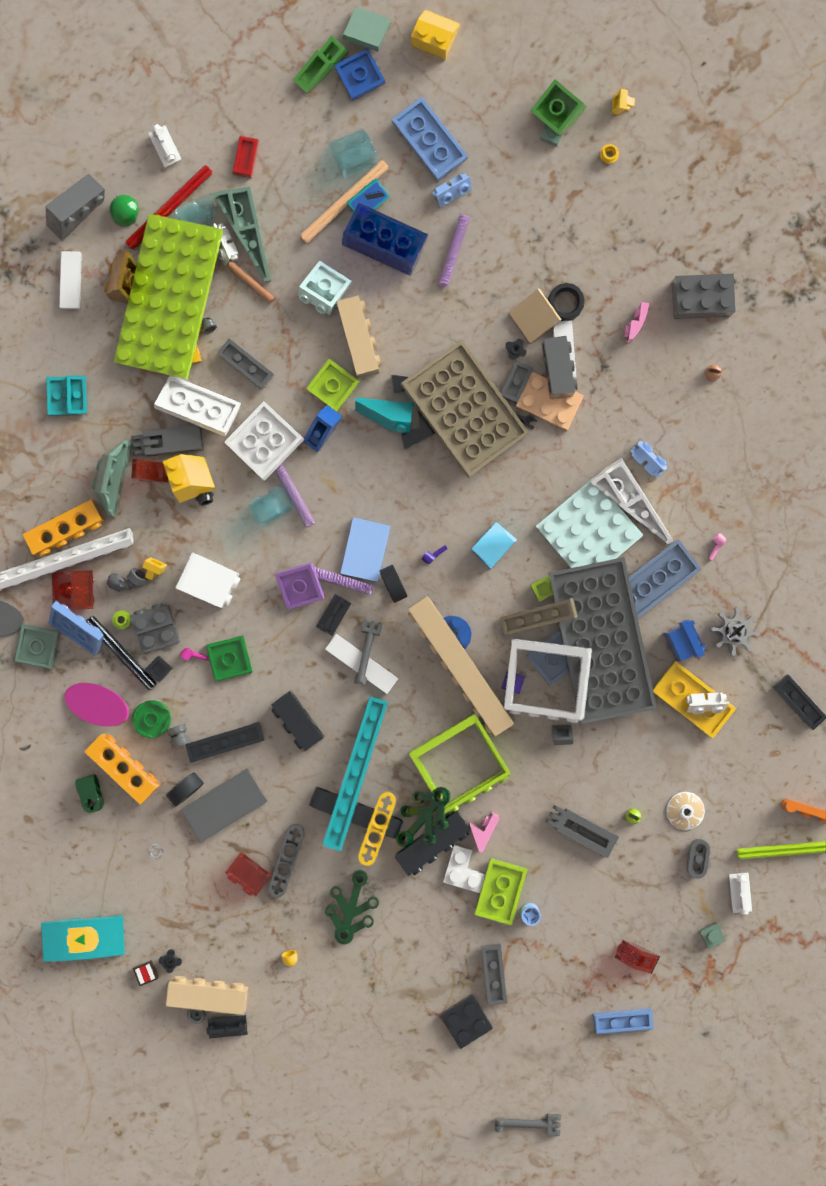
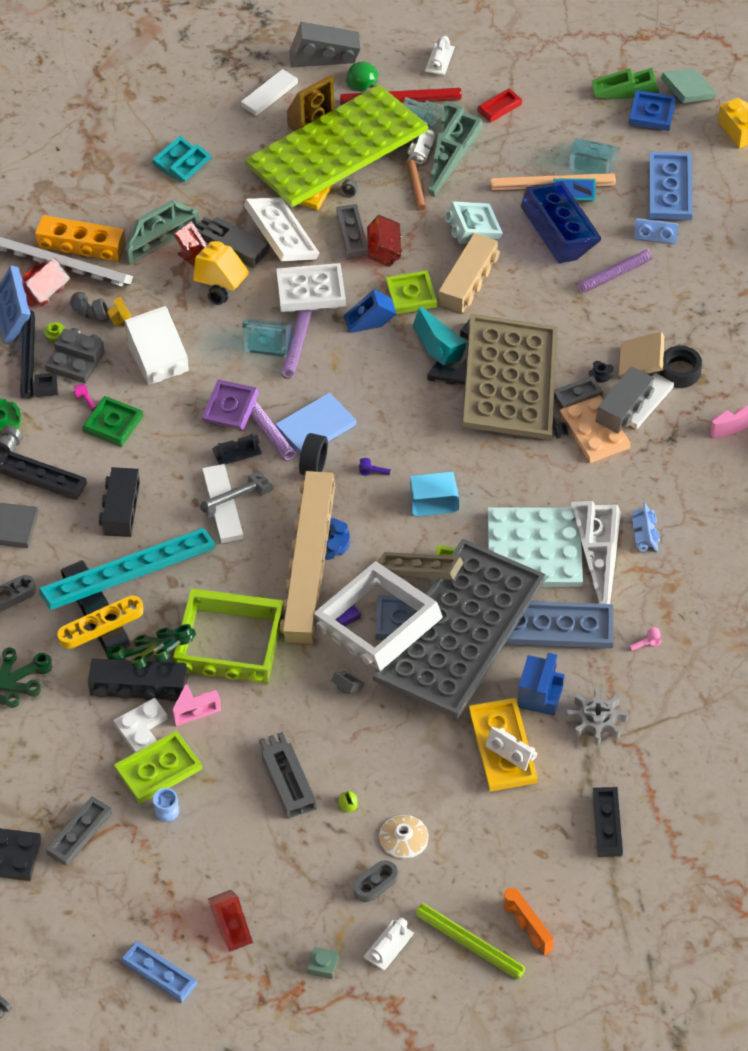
camera: 40 degrees right, 35 degrees down
(277, 357) = (384, 240): none -> clear red brick

